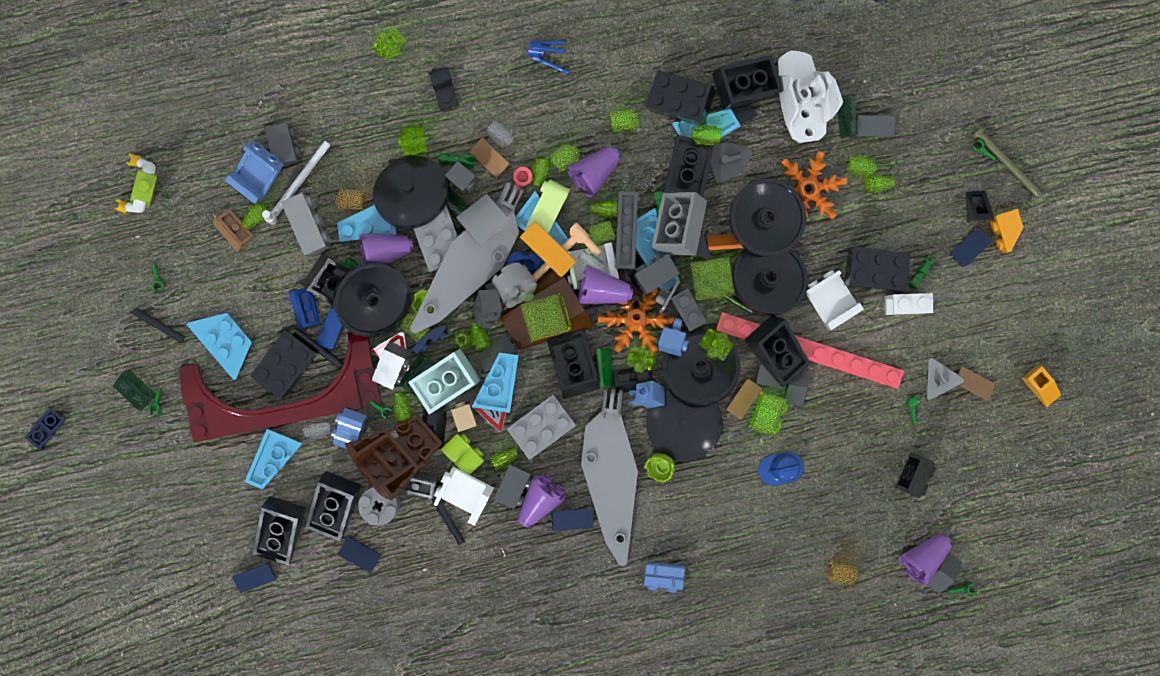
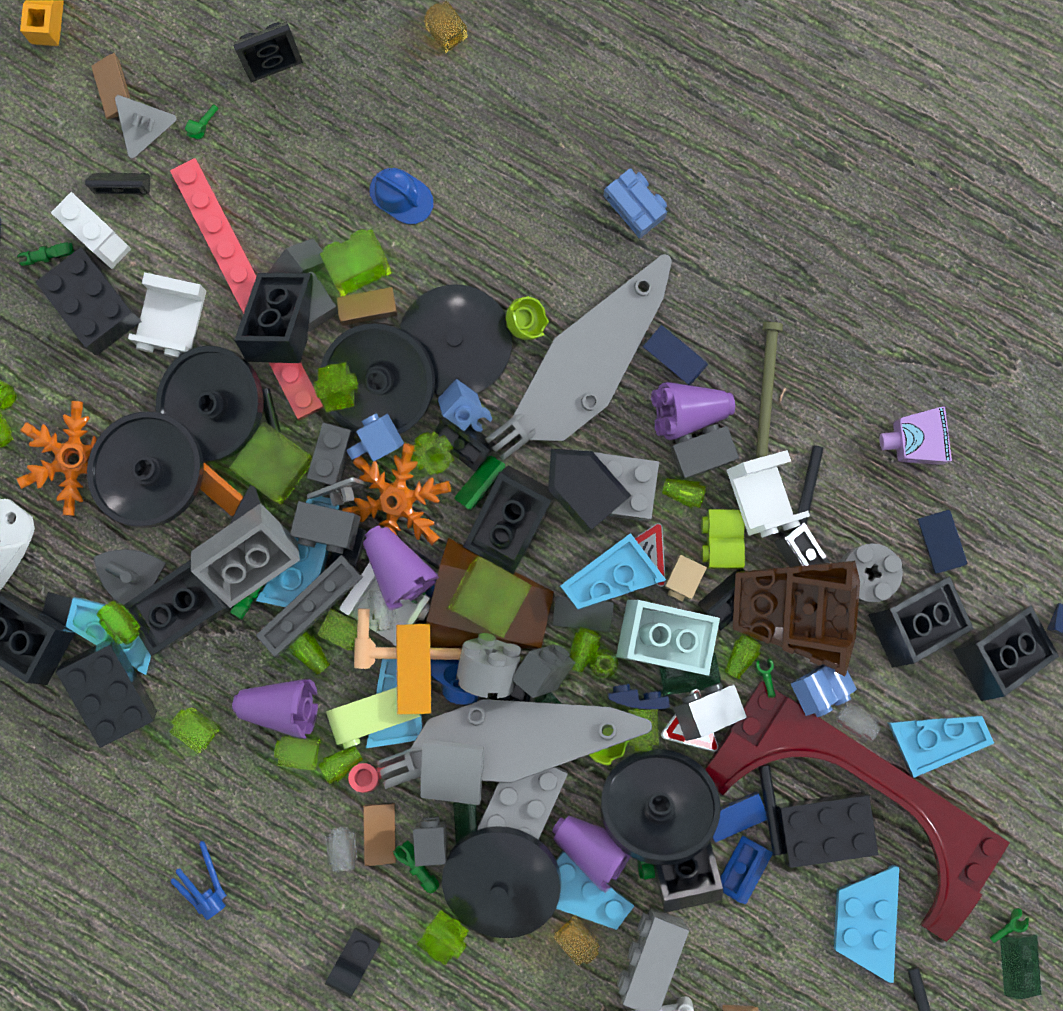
camera: 135 degrees left, 5 degrees down
(417, 594) = (920, 438): none -> lavender torso
(512, 546) = (772, 330): none -> olive bar
(552, 412) = (584, 486): none -> black tile
(923, 340) = (119, 183): none -> black slope

